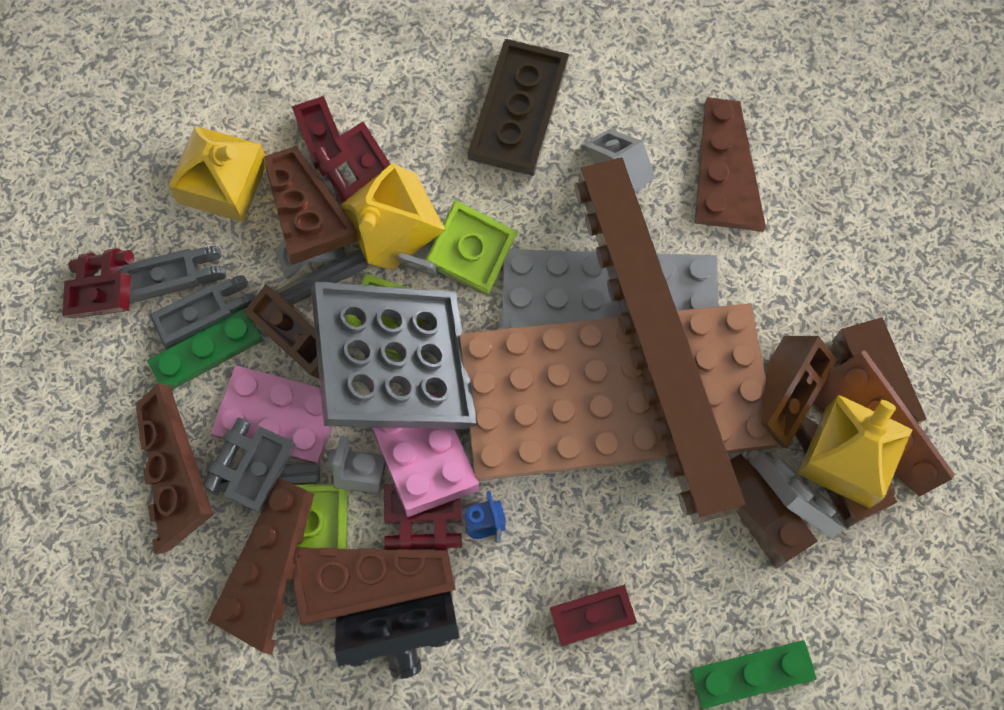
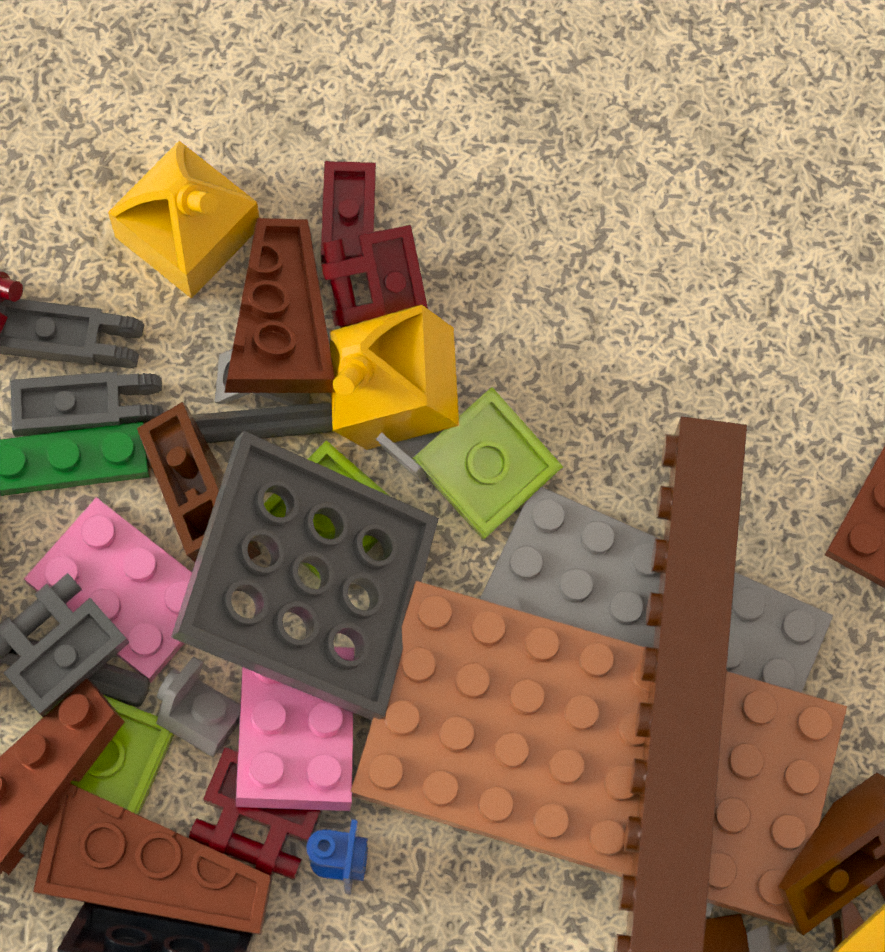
camera: 20 degrees right, 0 degrees up
(518, 107) = (644, 285): dark brown plate -> none
(615, 145) = (754, 400): light grey slope -> none

